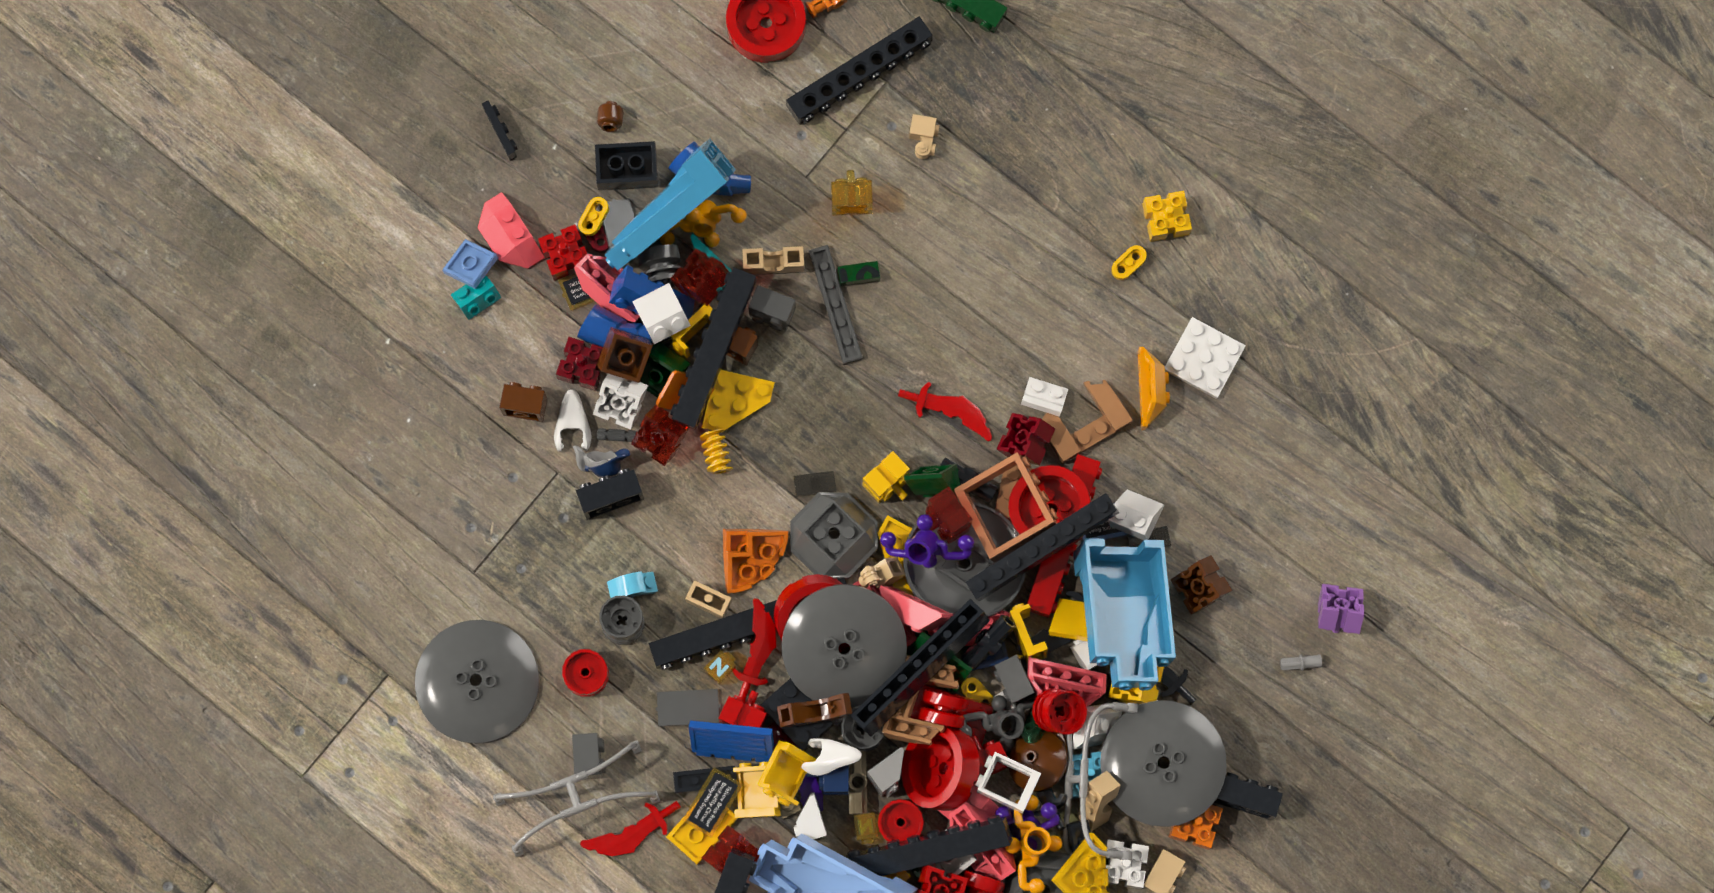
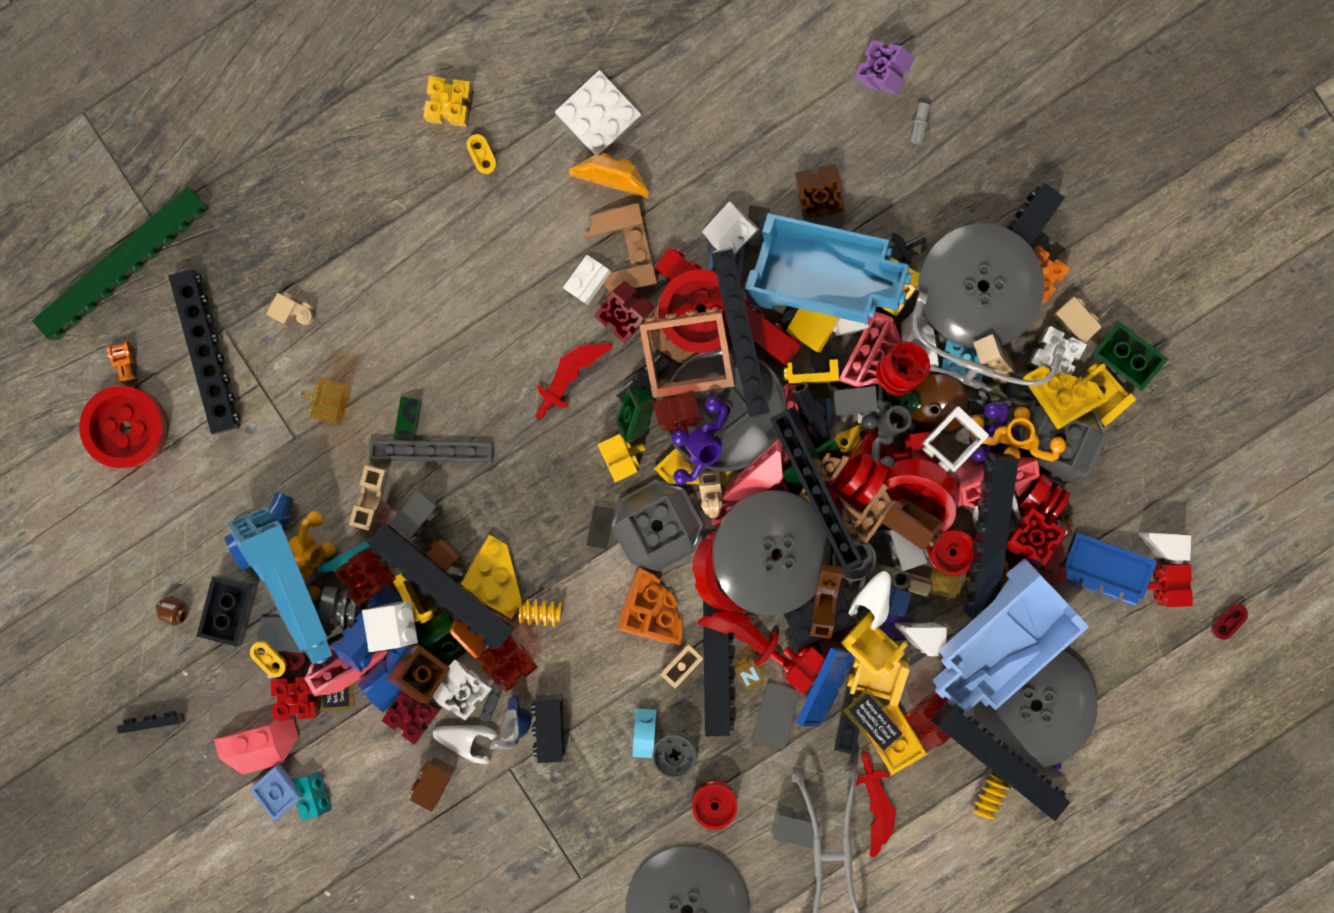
camera: 70 degrees left, 10 degrees up
(916, 768) = (914, 523): none -> reddish brown window

